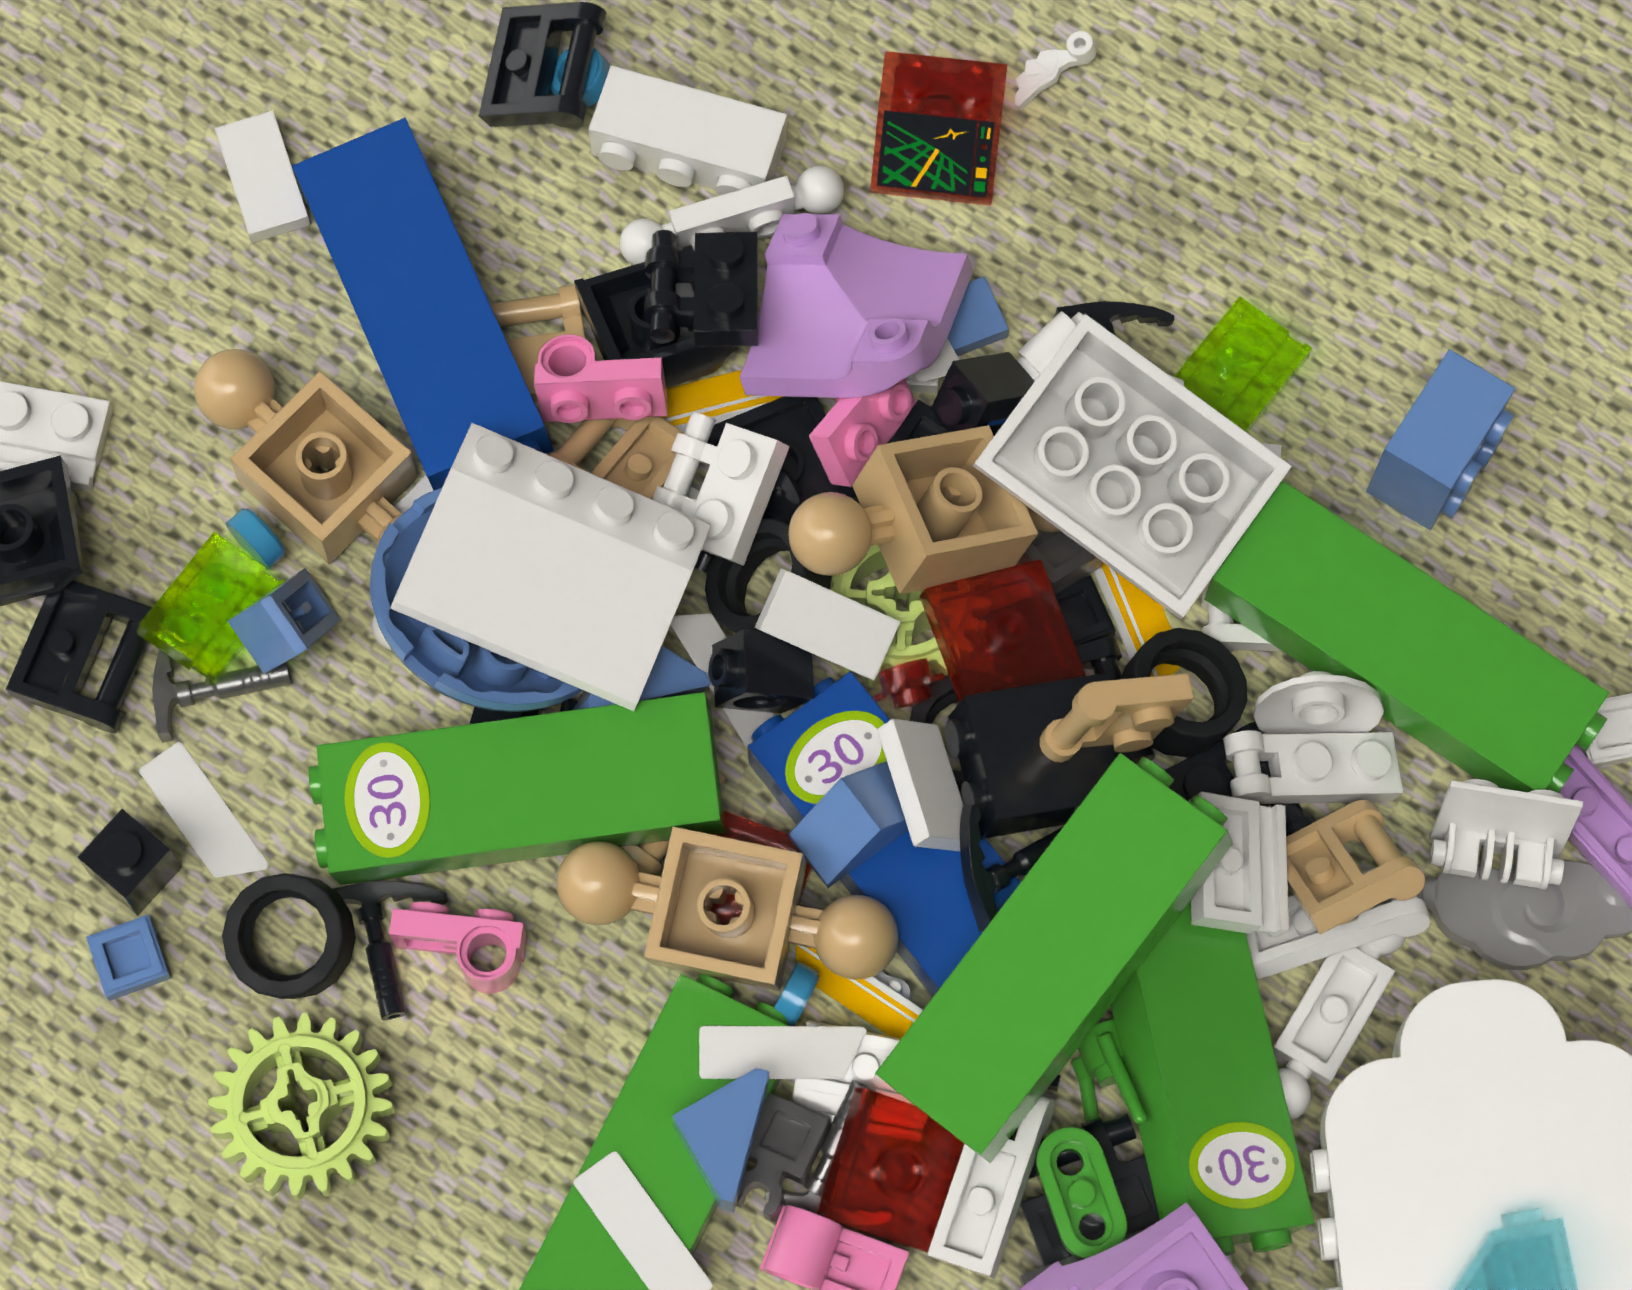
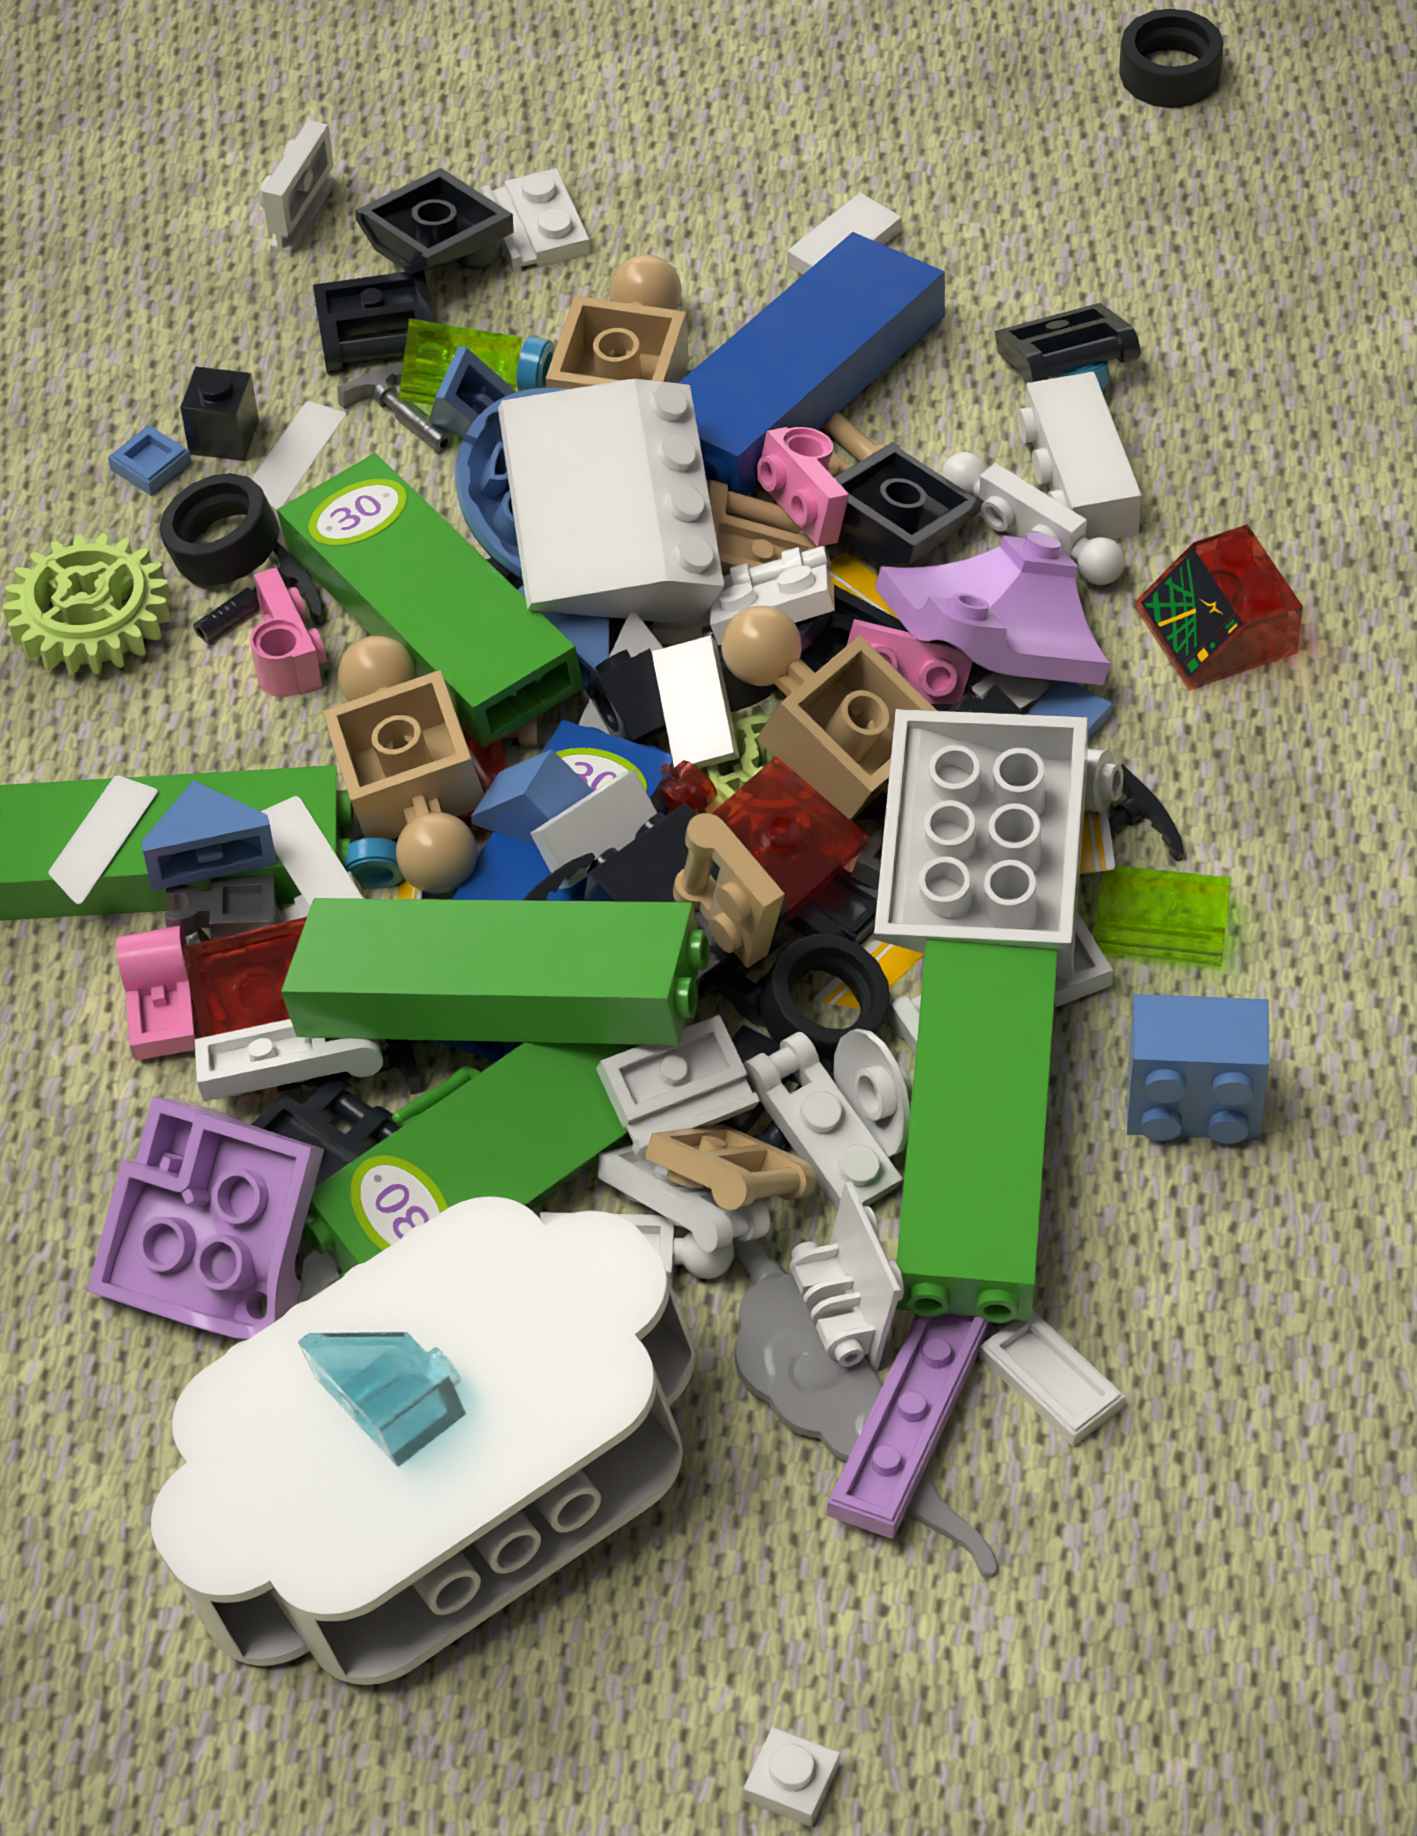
camera: 65 degrees right, 20 degrees down
(724, 288) = (950, 521): black plate -> none
(1049, 64) = (1338, 664): white piece -> none
(1080, 1194) = (303, 1109): bright green plate -> none

